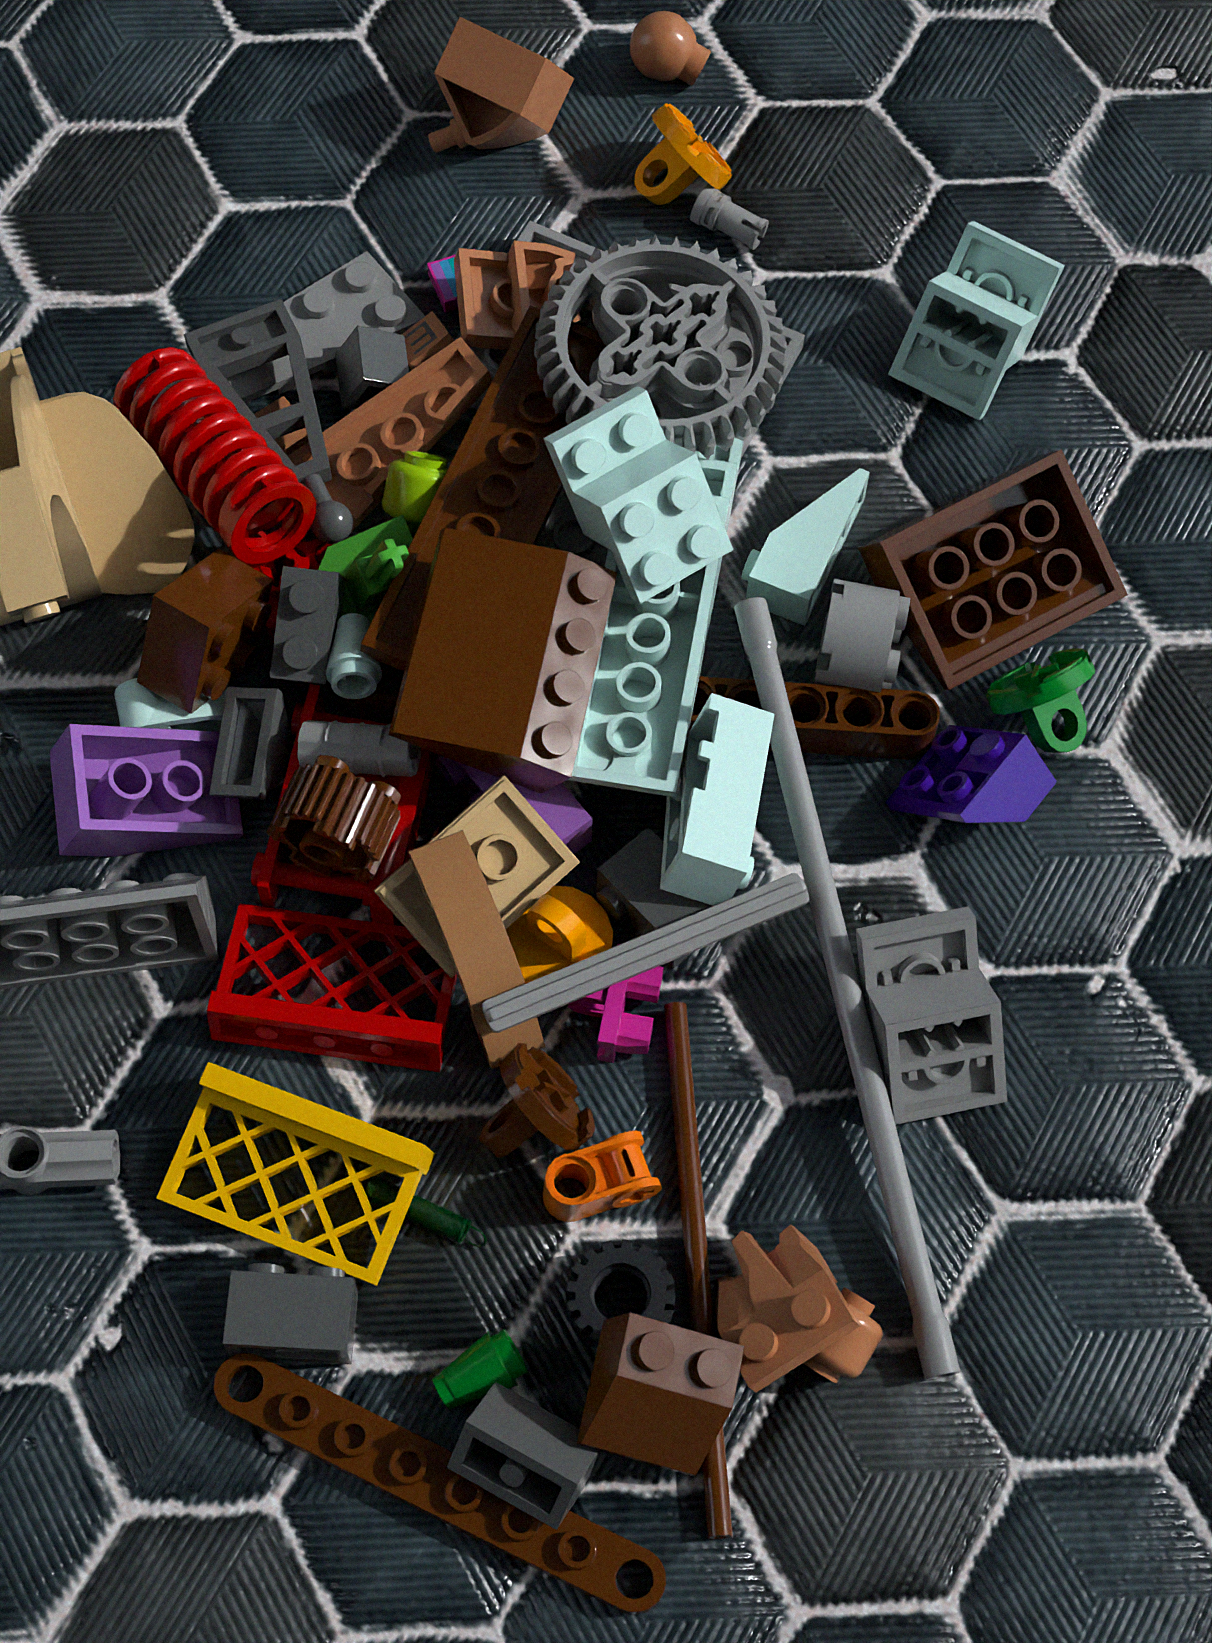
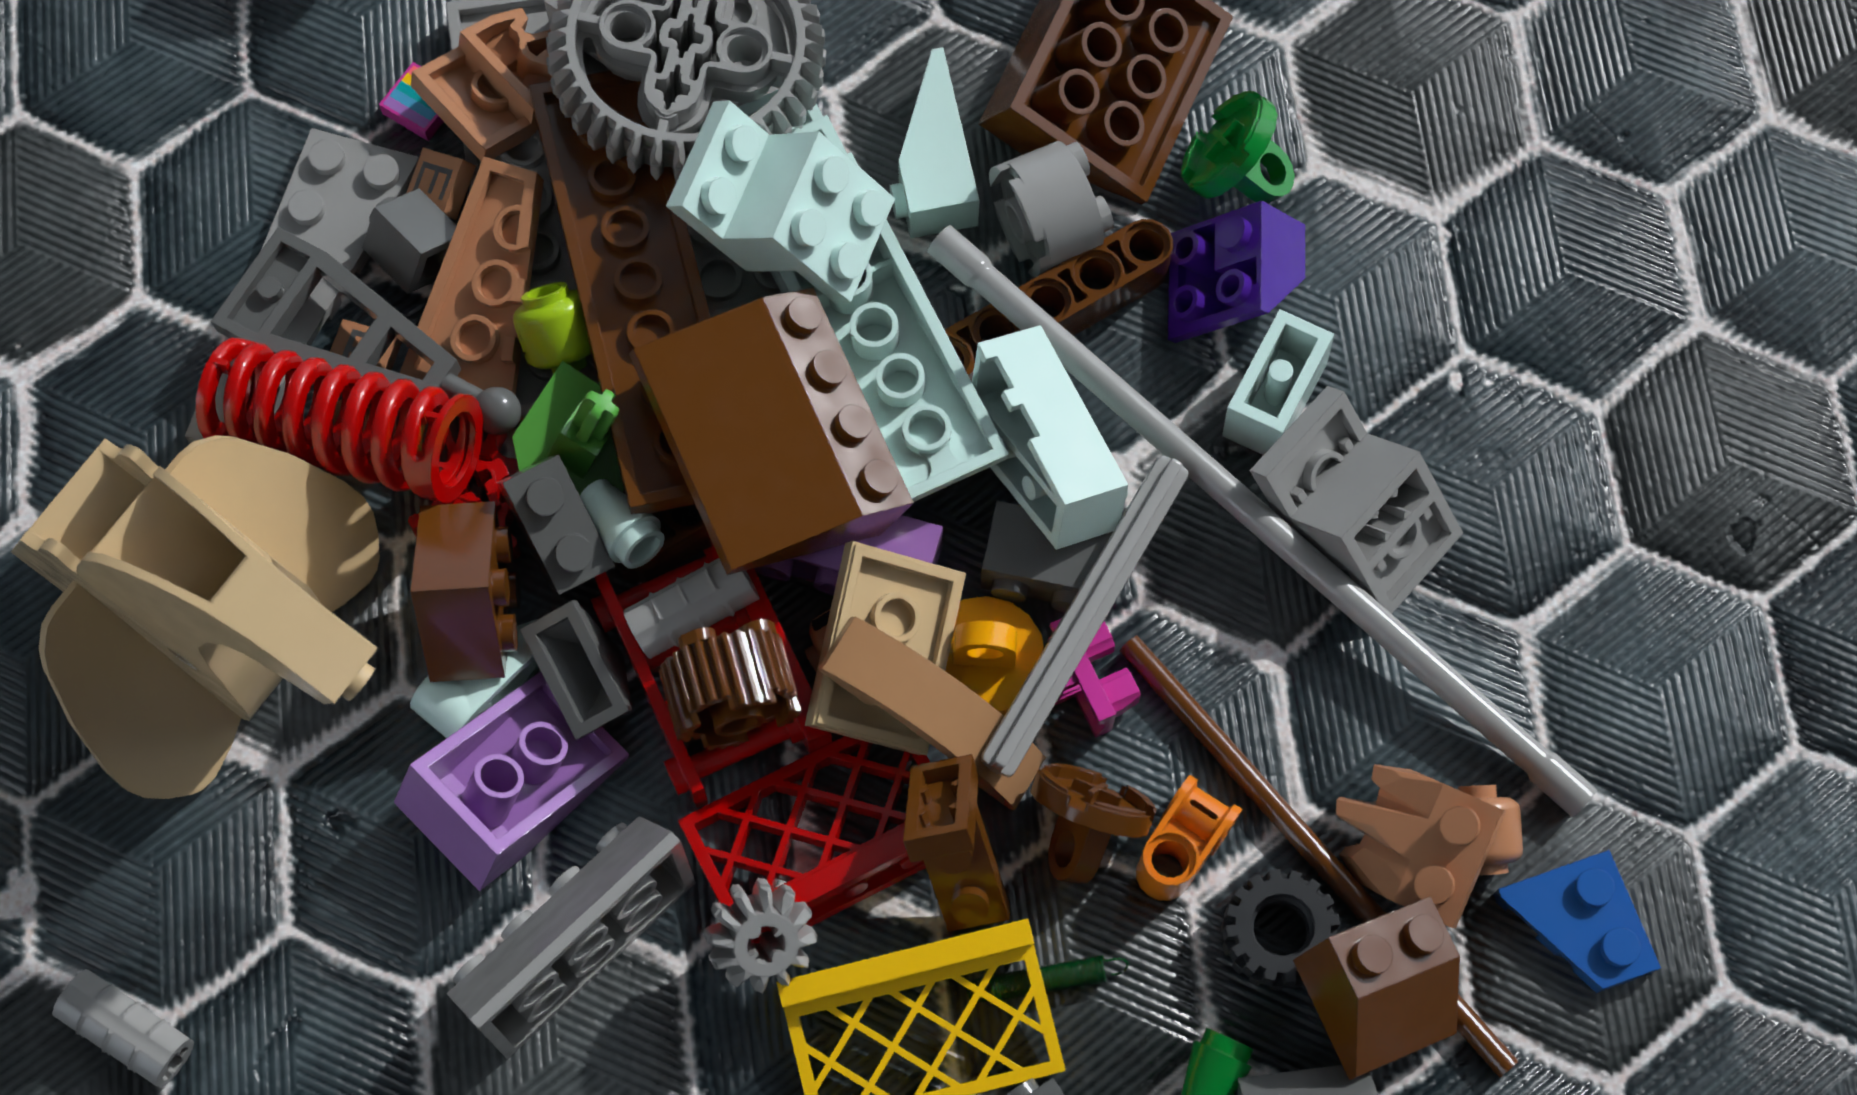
camera: 35 degrees left, 5 degrees up
(196, 1008) = (744, 922): none -> light grey gear
(414, 1041) = (951, 839): none -> reddish brown bracket
(872, 1466) = (1586, 919): none -> blue wing
(940, 879) = (1277, 382): none -> light aqua brick

